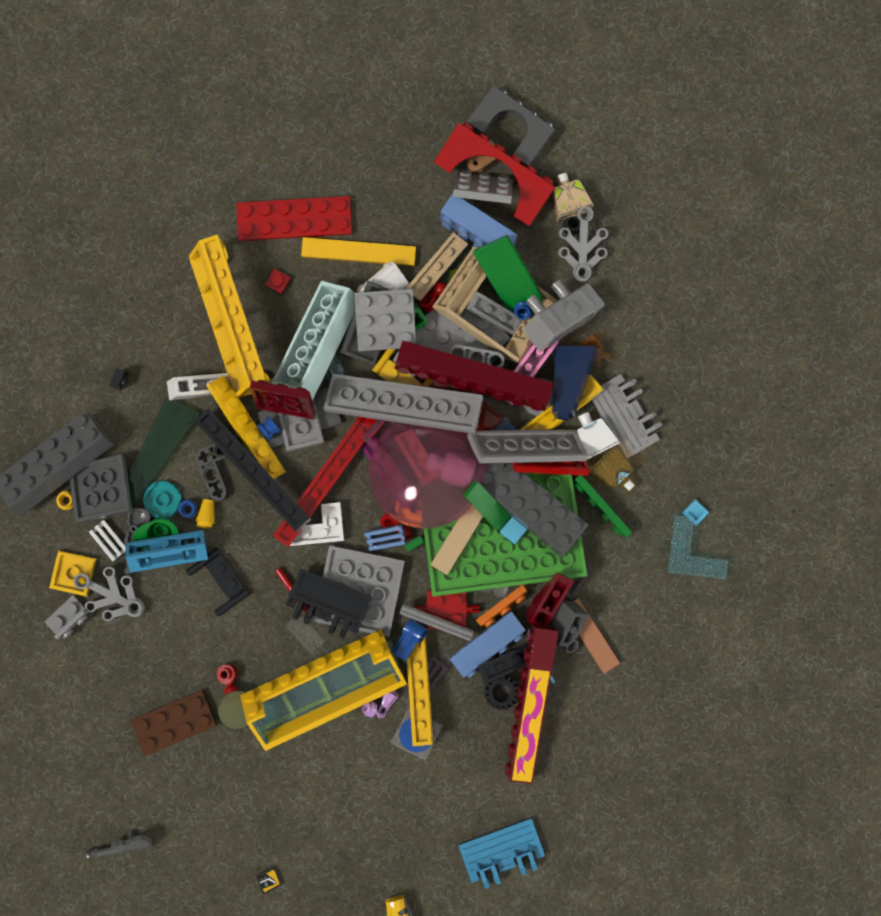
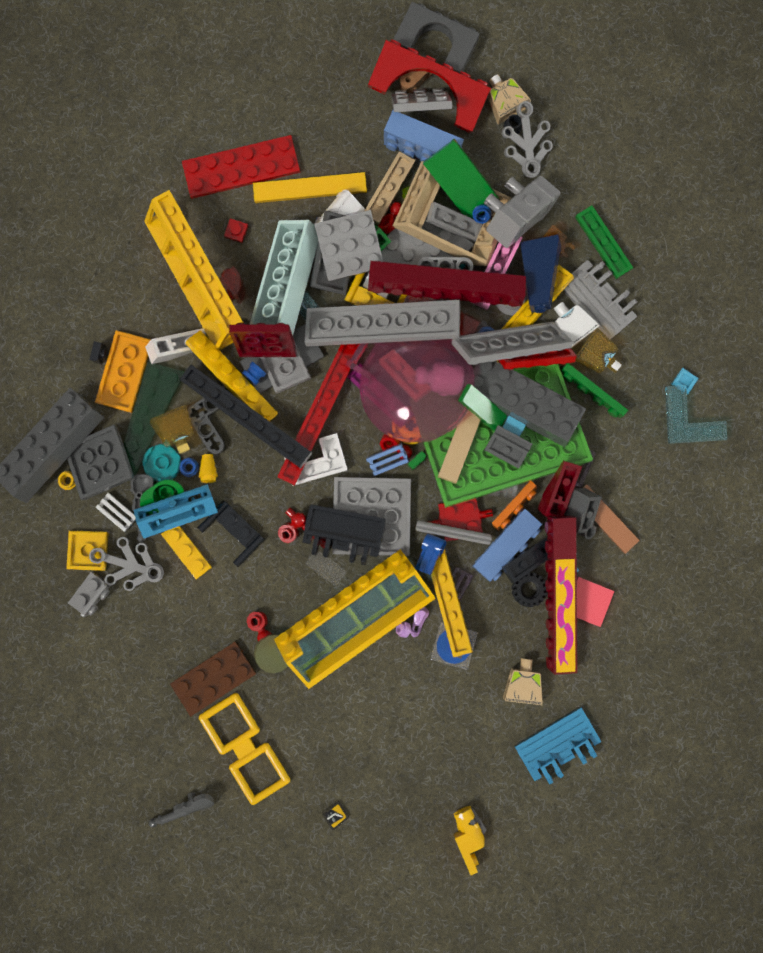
camera: 10 degrees left, 0 degrees up
(140, 402) = (123, 372): none -> light orange tile
(171, 592) = (187, 551): none -> yellow plate
(180, 468) = (174, 428): none -> clear yellow torso
(191, 798) = (244, 748): none -> yellow bar
(264, 337) = (233, 284): none -> clear red brick
(285, 582) = (297, 520): none -> red plate
(478, 785) = (524, 684): none -> tan torso
(505, 548) = (508, 446): none -> dark grey plate
(561, 715) = (592, 601): none -> coral tile
(640, 359) = (604, 242): none -> green plate

